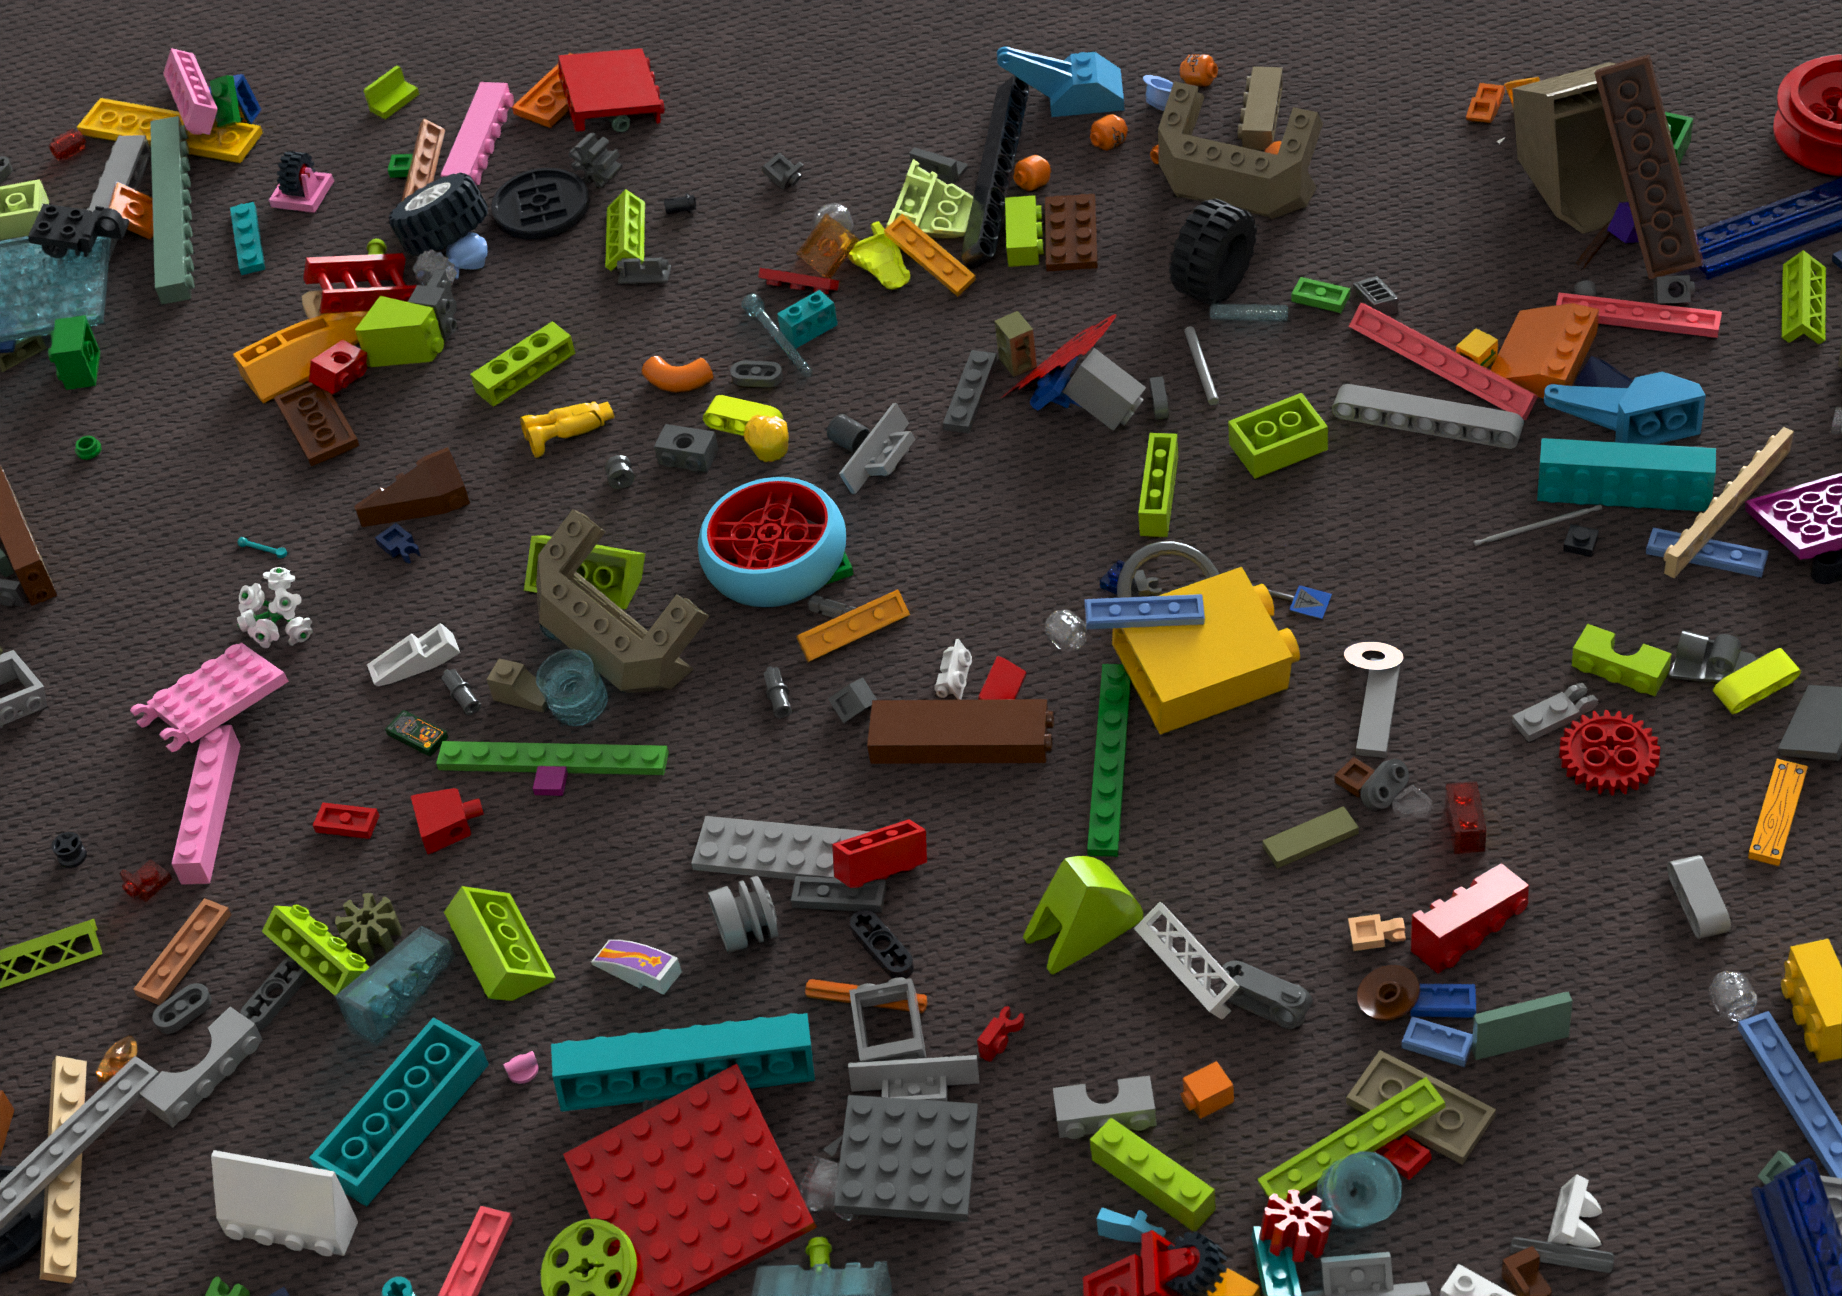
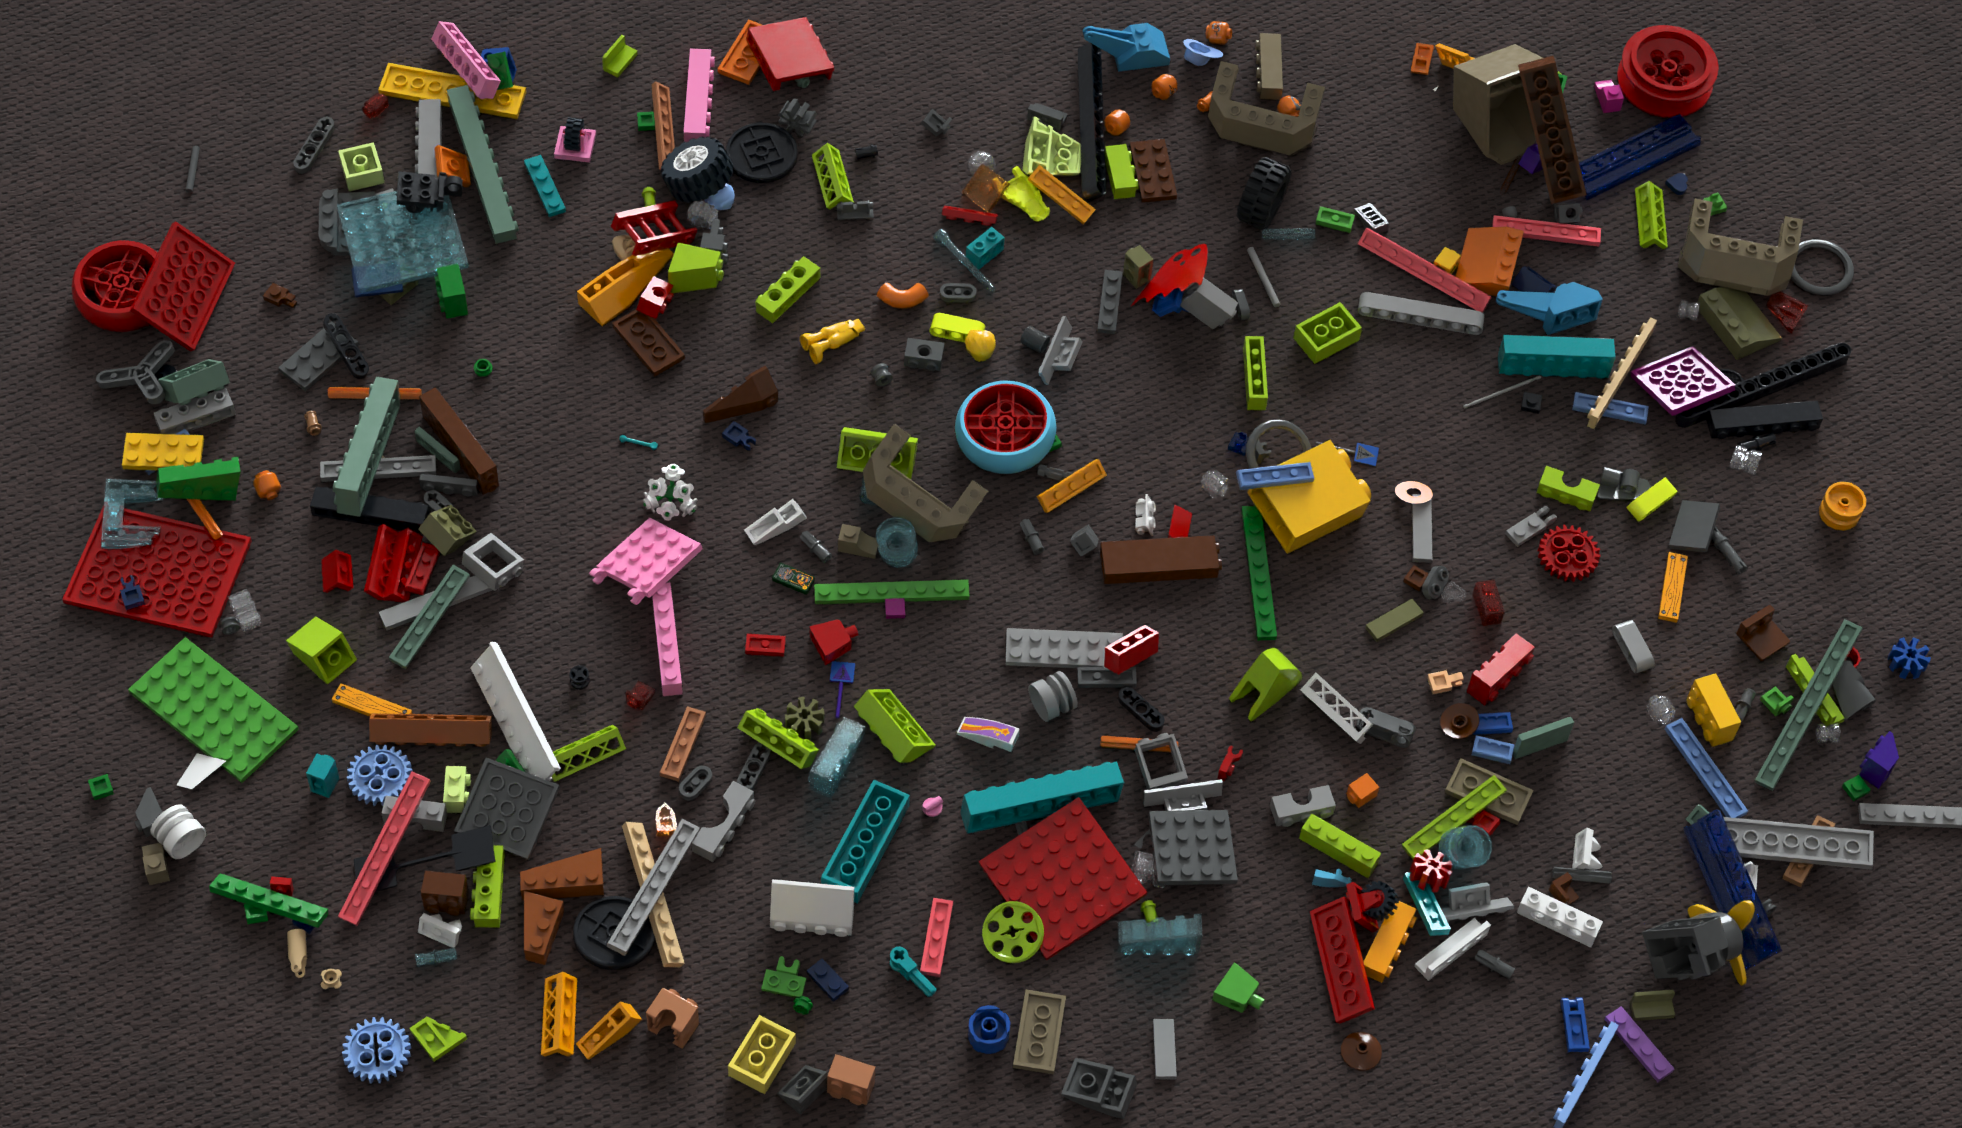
camera: 20 degrees left, 10 degrees up
(445, 867) = (843, 673): none -> piece
(1757, 149) = (1609, 96): none -> dark pink arch

